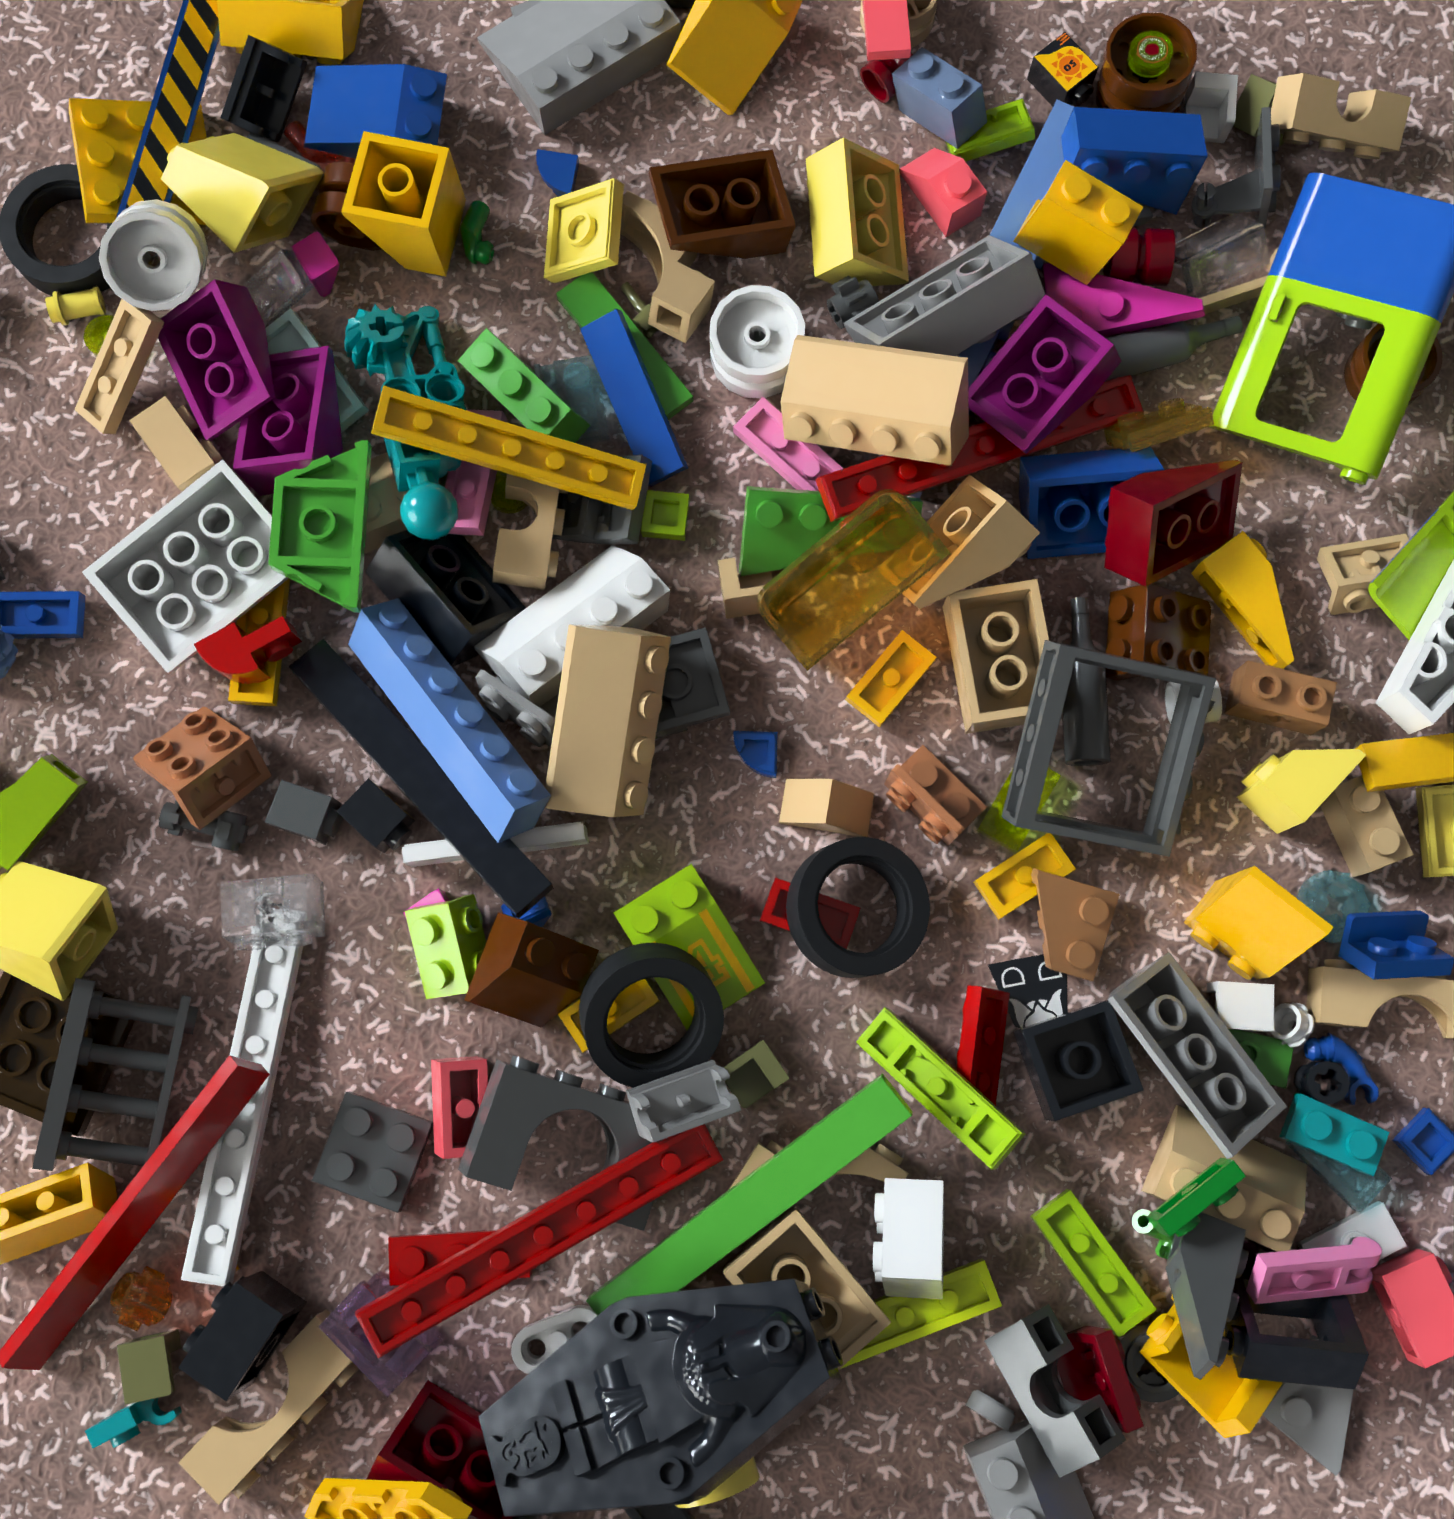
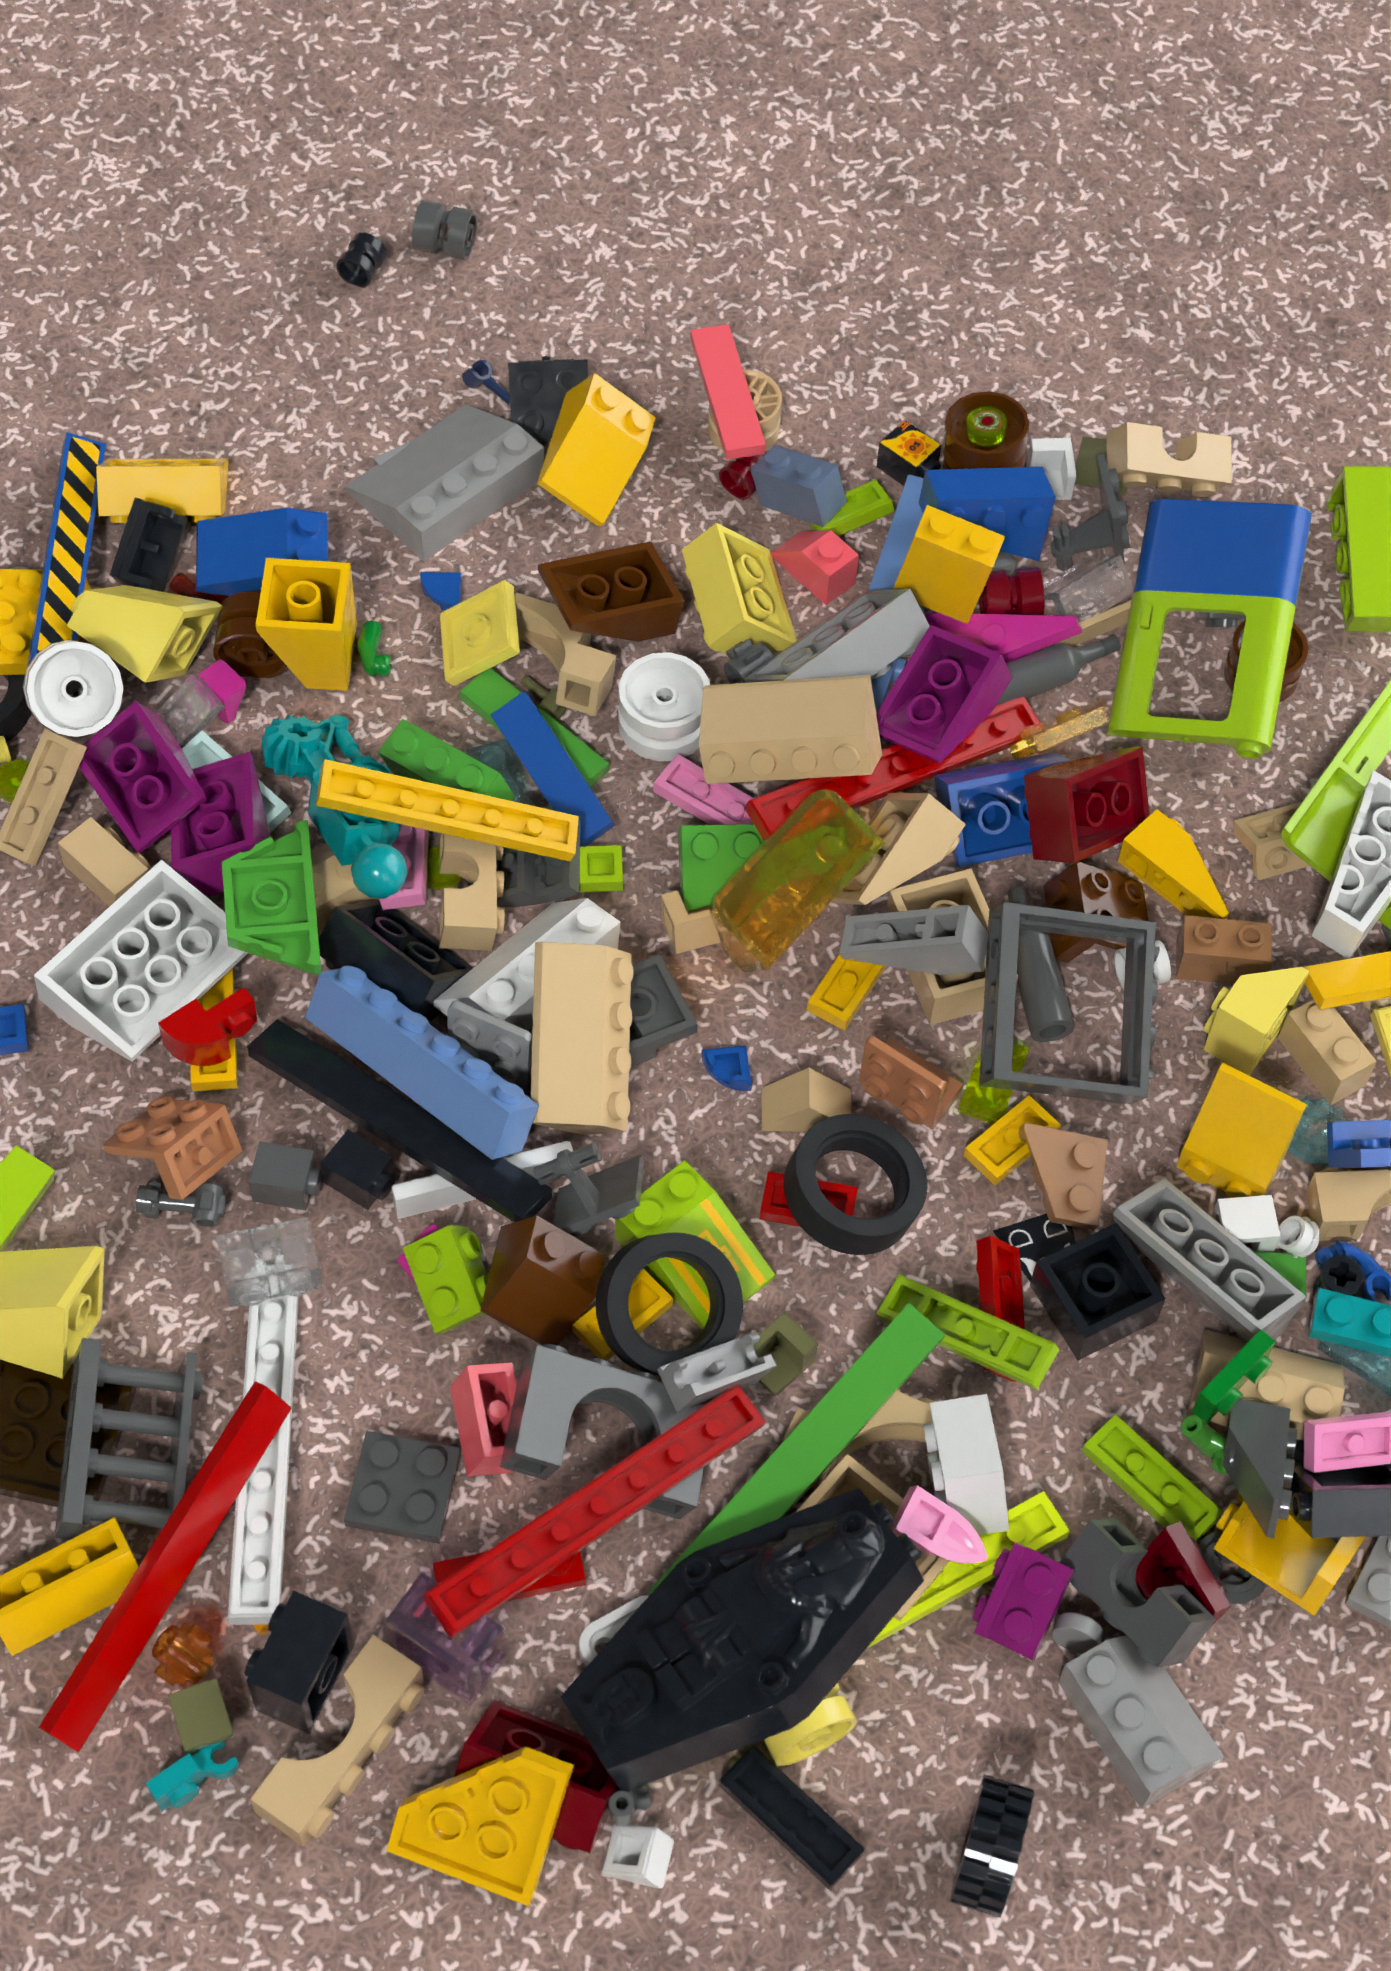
camera: 15 degrees left, 20 degrees down
(595, 888) = (595, 1197): none -> dark grey plate
(867, 1310) = (937, 1528): none -> bright pink plate
(944, 1374) = (1022, 1600): none -> magenta bracket
(965, 661) = (918, 940): none -> light grey slope

